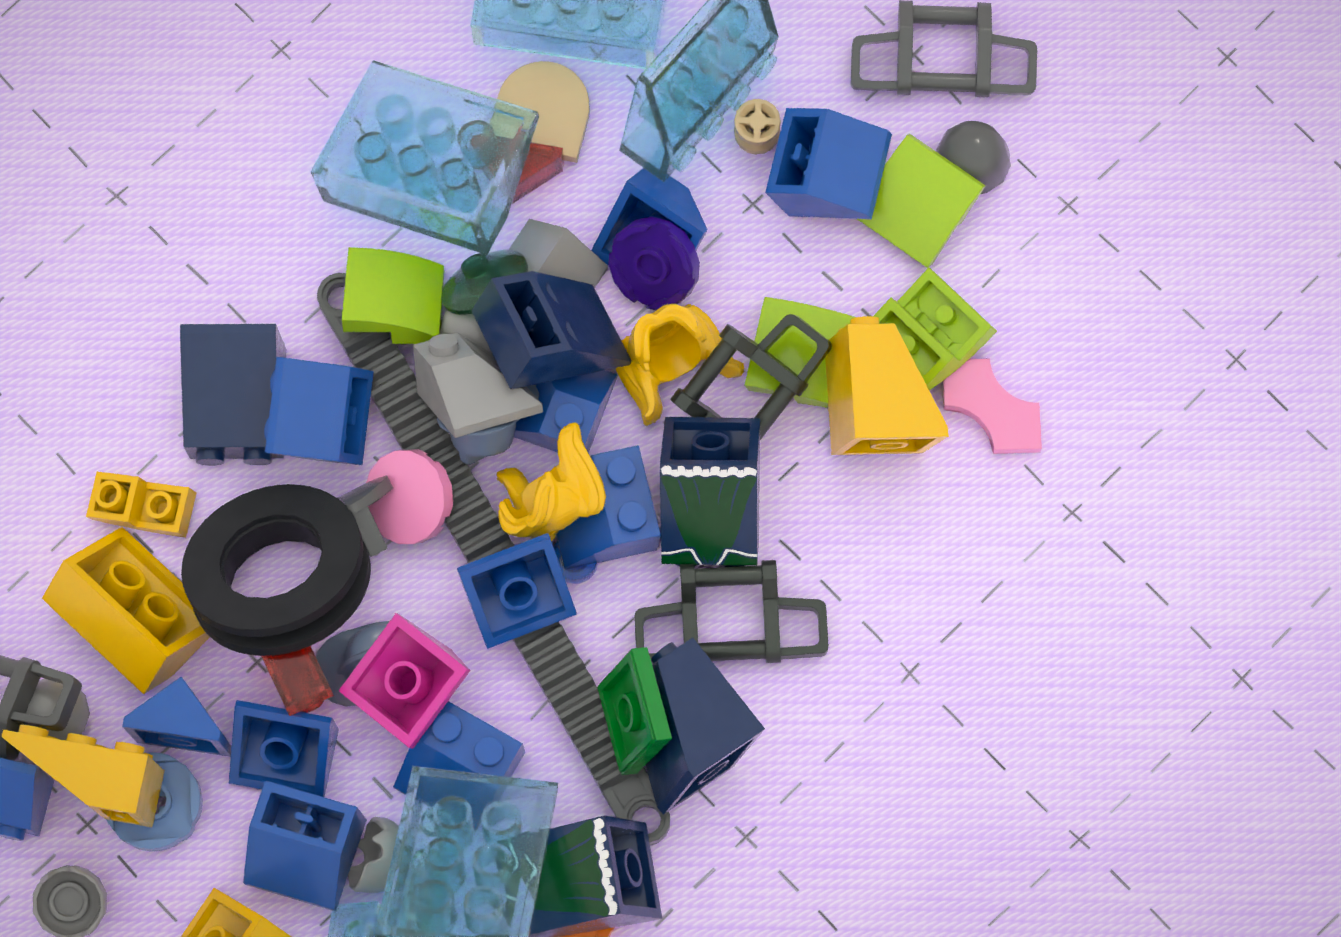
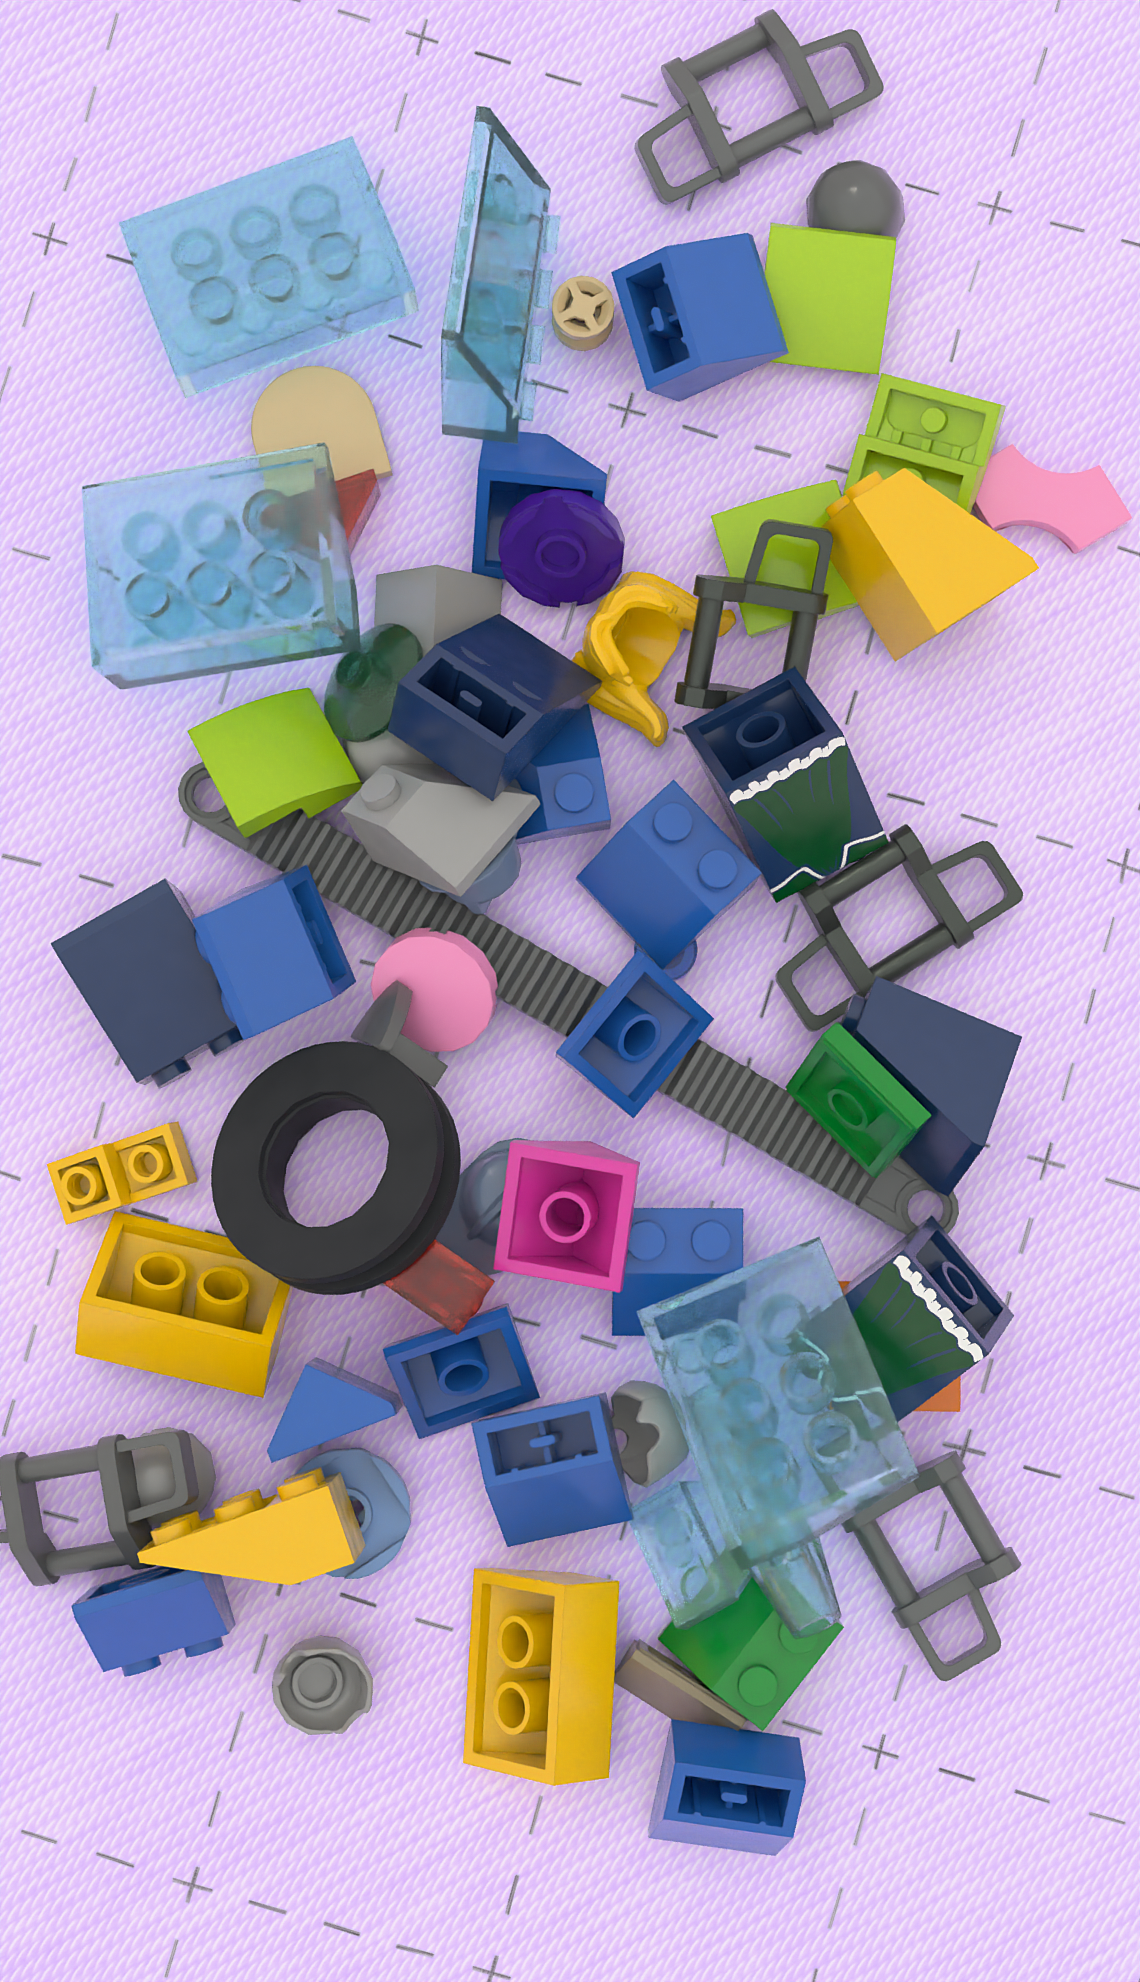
camera: 35 degrees left, 10 degrees up
(555, 498) = (611, 896): yellow hair -> none

